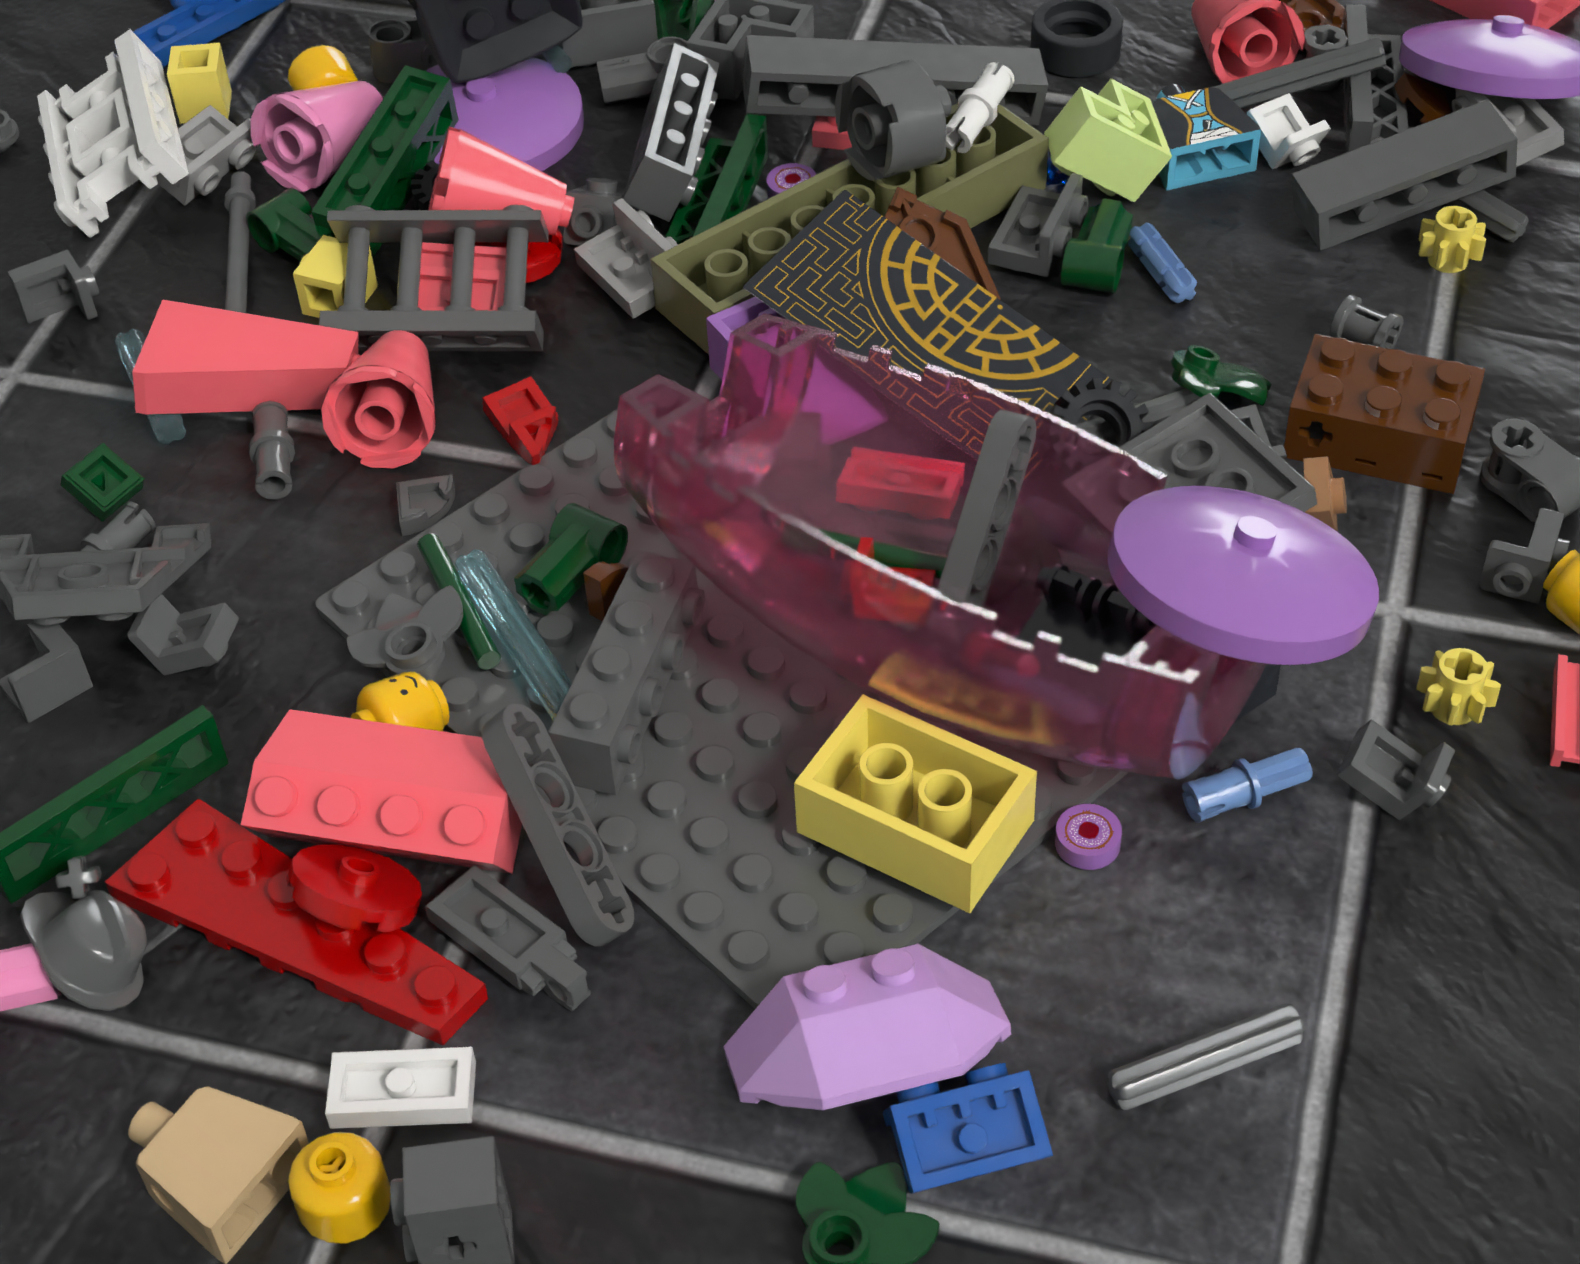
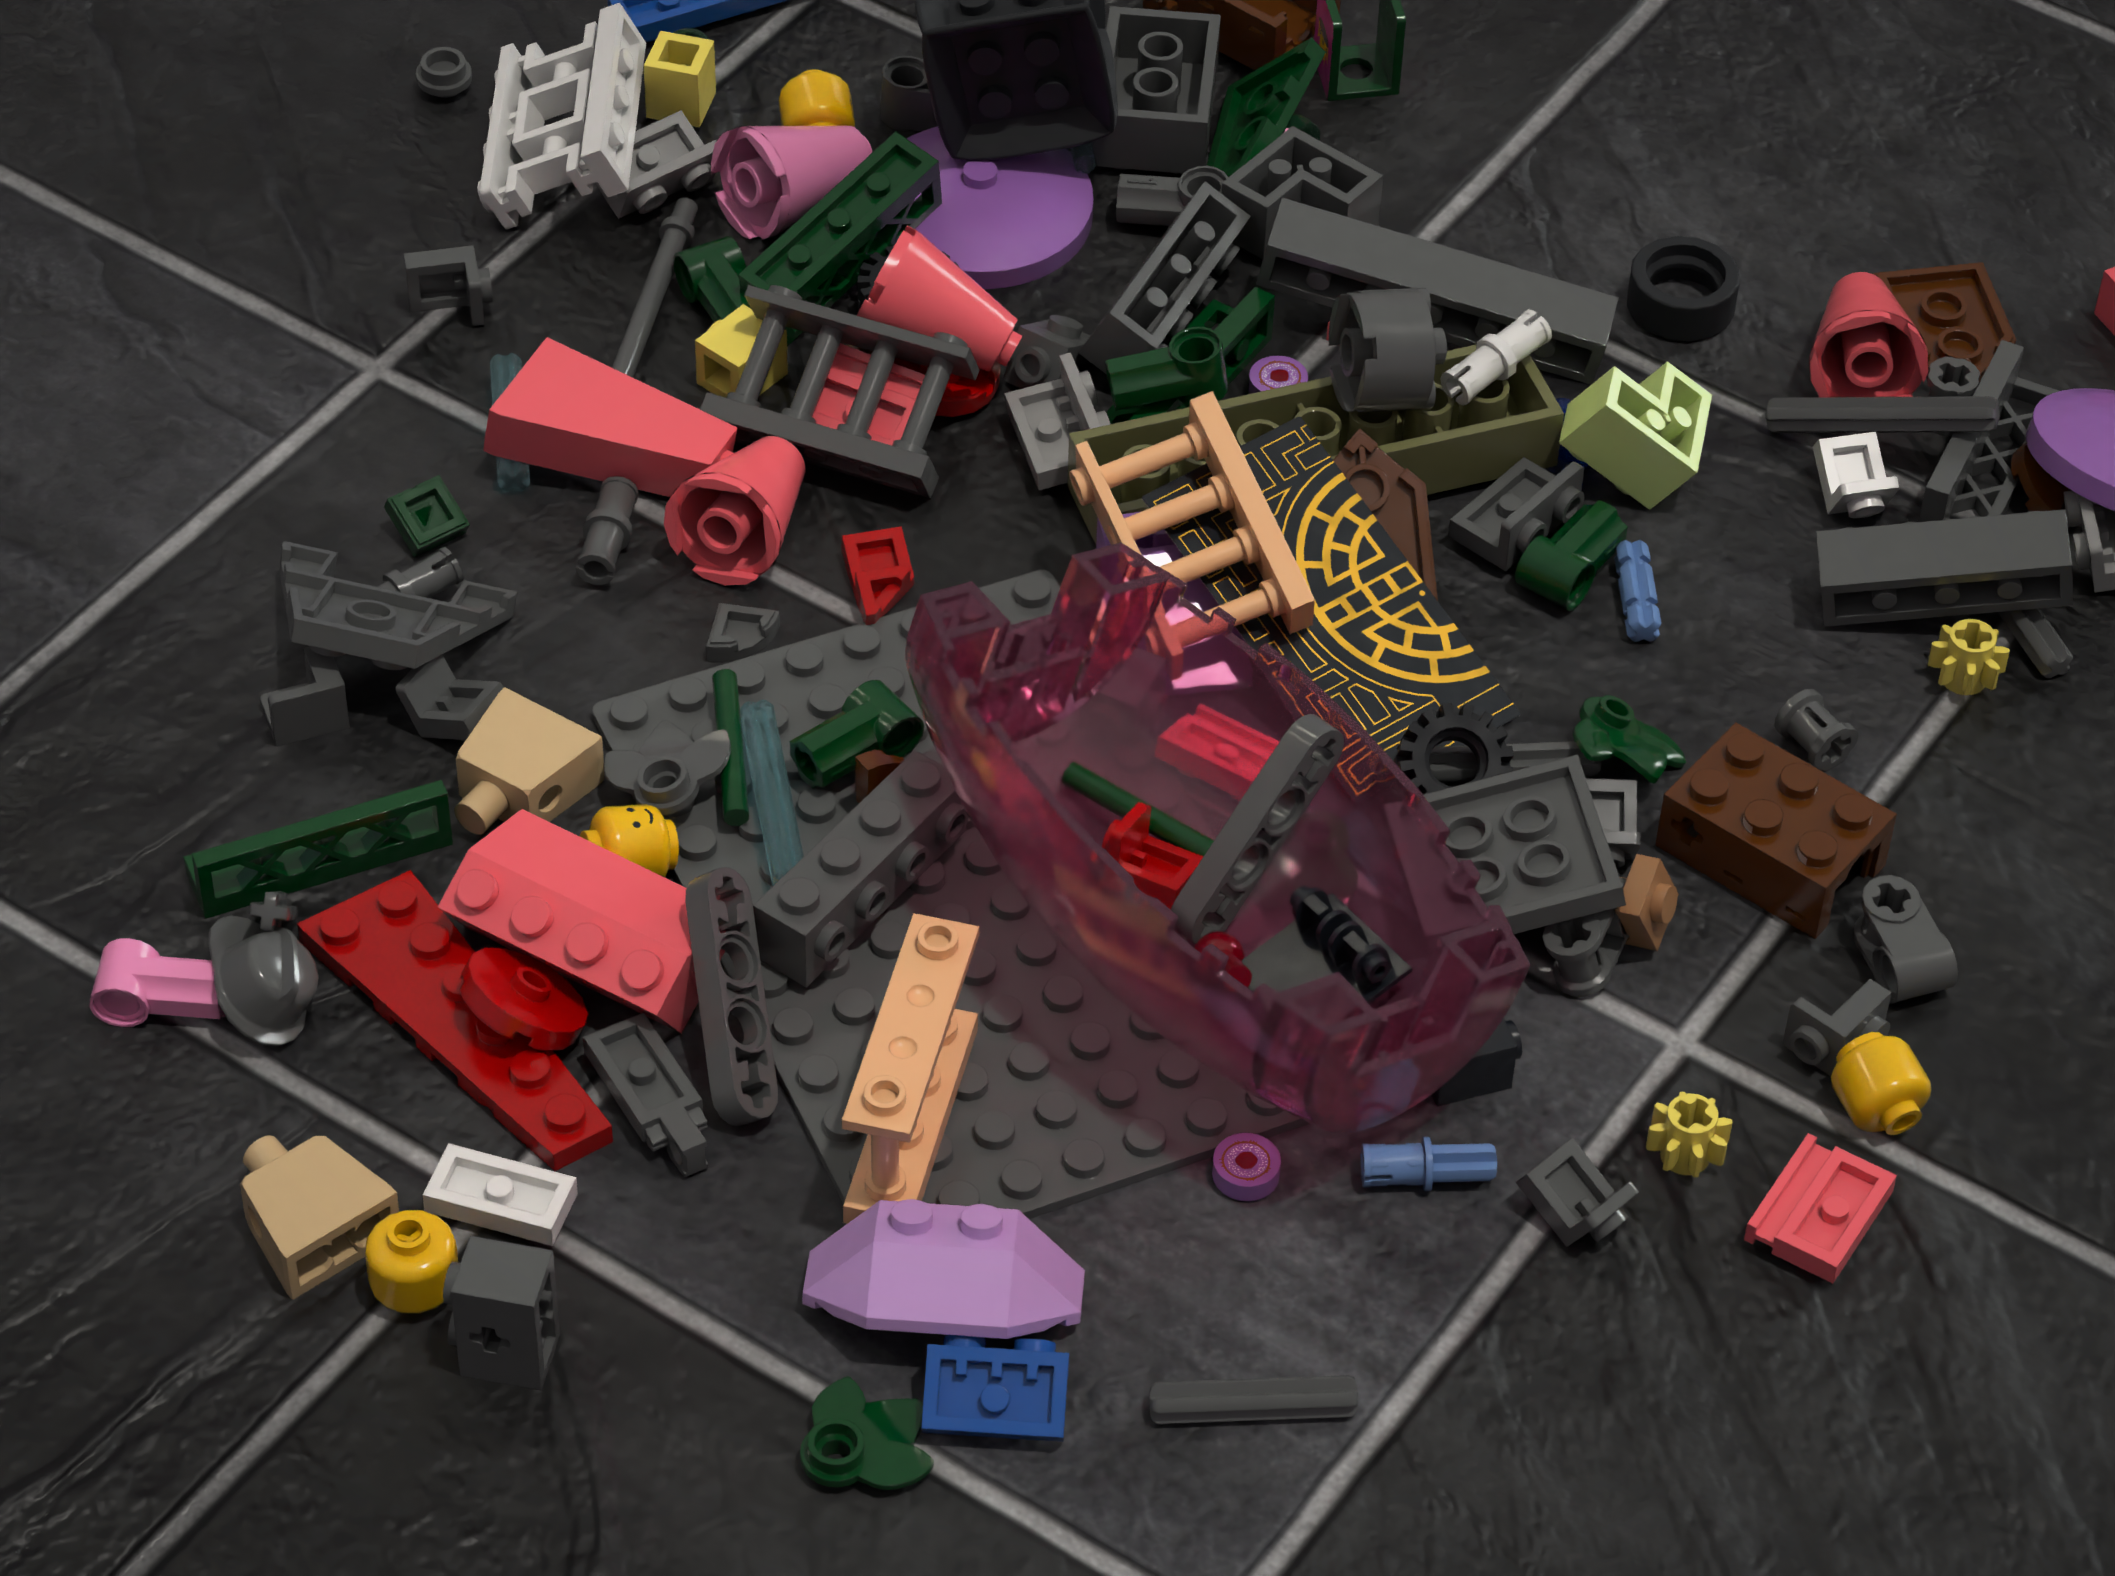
camera: 15 degrees right, 0 degrees up
(272, 666) = (524, 761): none -> tan torso
(727, 185) = (1182, 371): none -> dark green piece
(765, 838) = (912, 1065): none -> light nougat fence
(819, 256) = (1230, 488): none -> light nougat fence
(915, 802) = (1078, 1079): light yellow brick -> none
(1205, 136) = (1755, 453): torso -> none
(1242, 575) = (1454, 949): medium lavender dish -> none

